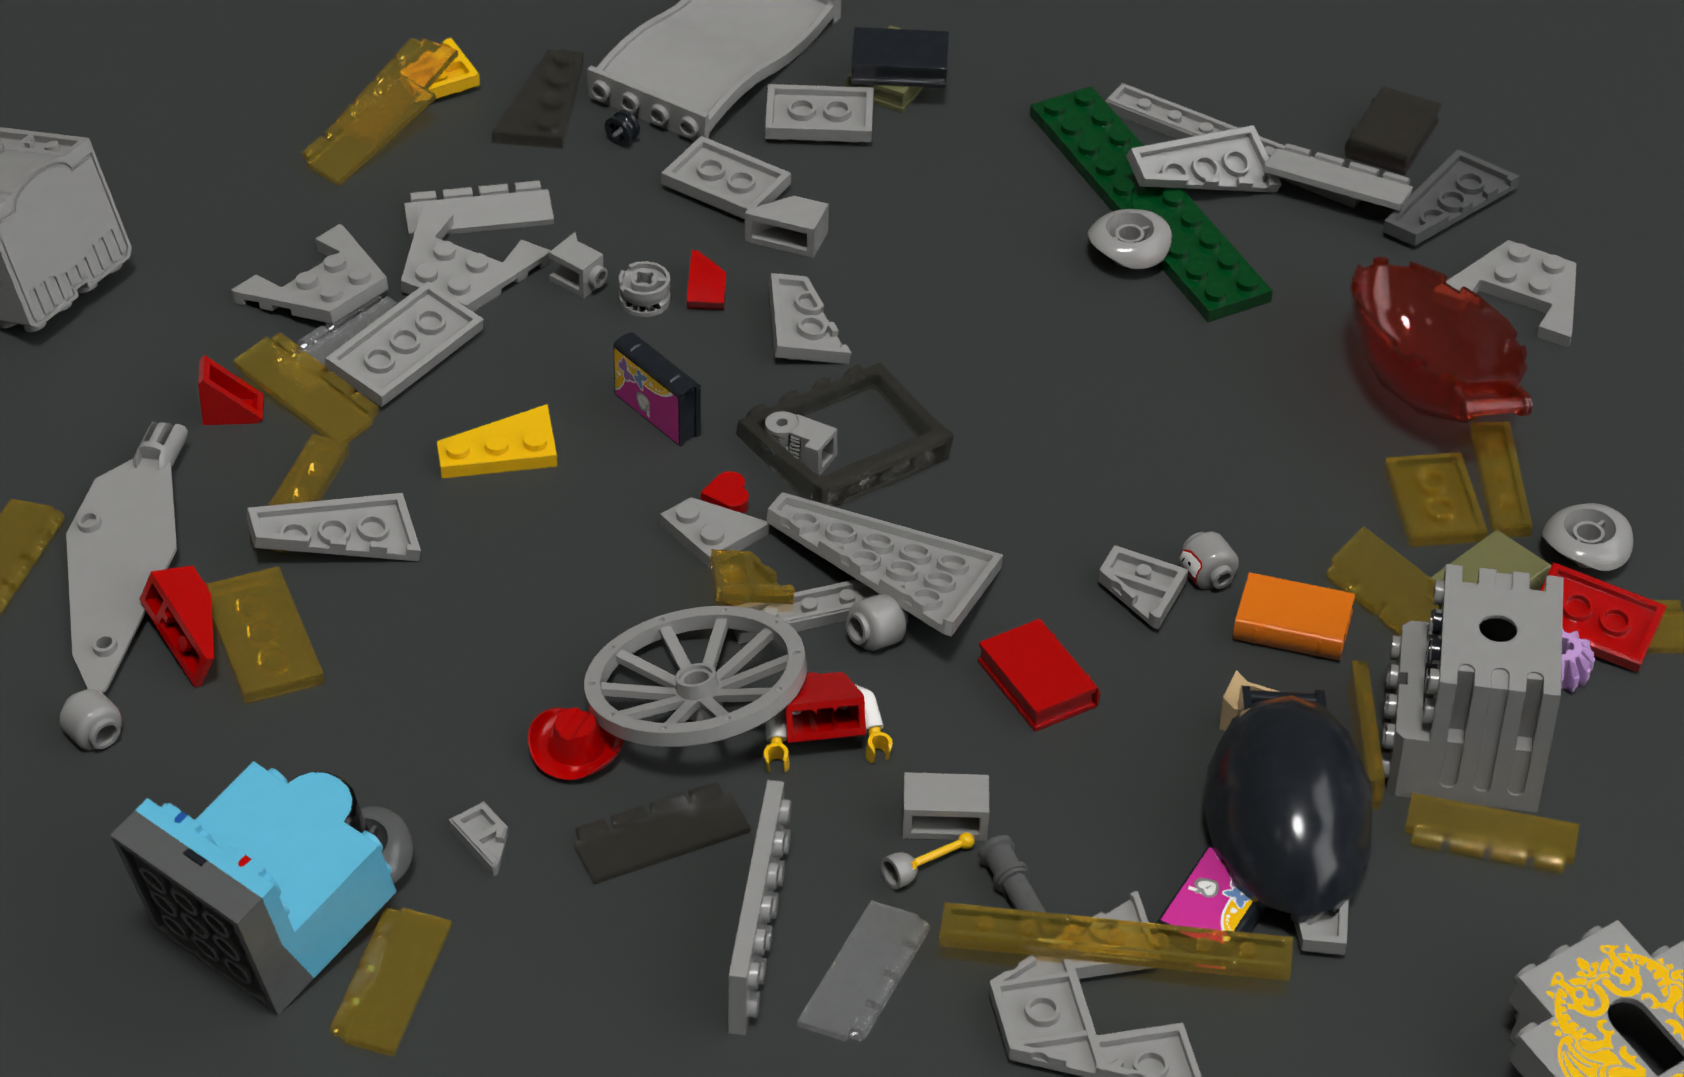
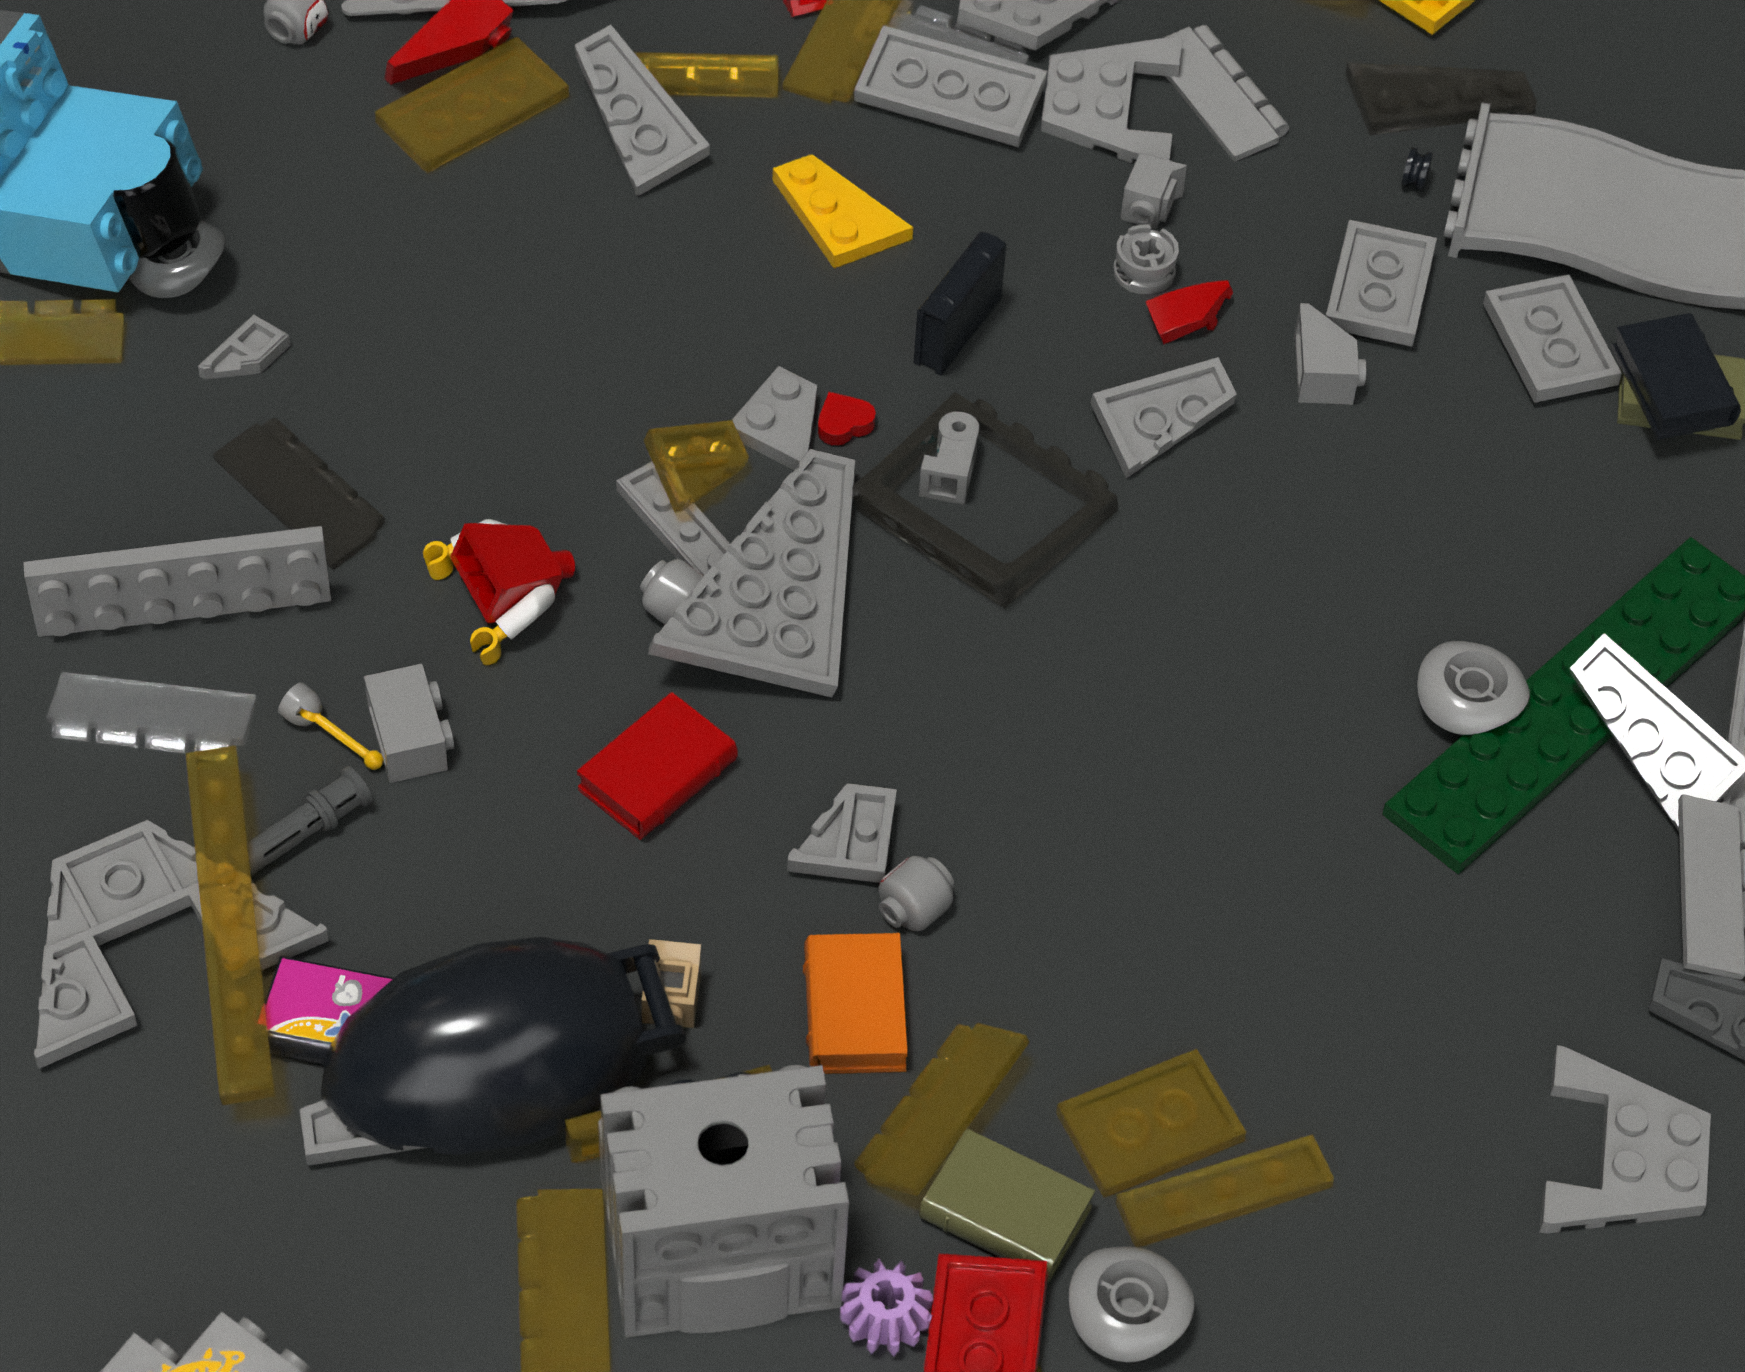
camera: 70 degrees right, 10 degrees up
(571, 743) = (403, 384): red hat -> none
(697, 687) = (503, 458): light grey wheel -> none
(1437, 345) = (1383, 1031): clear red windscreen -> none

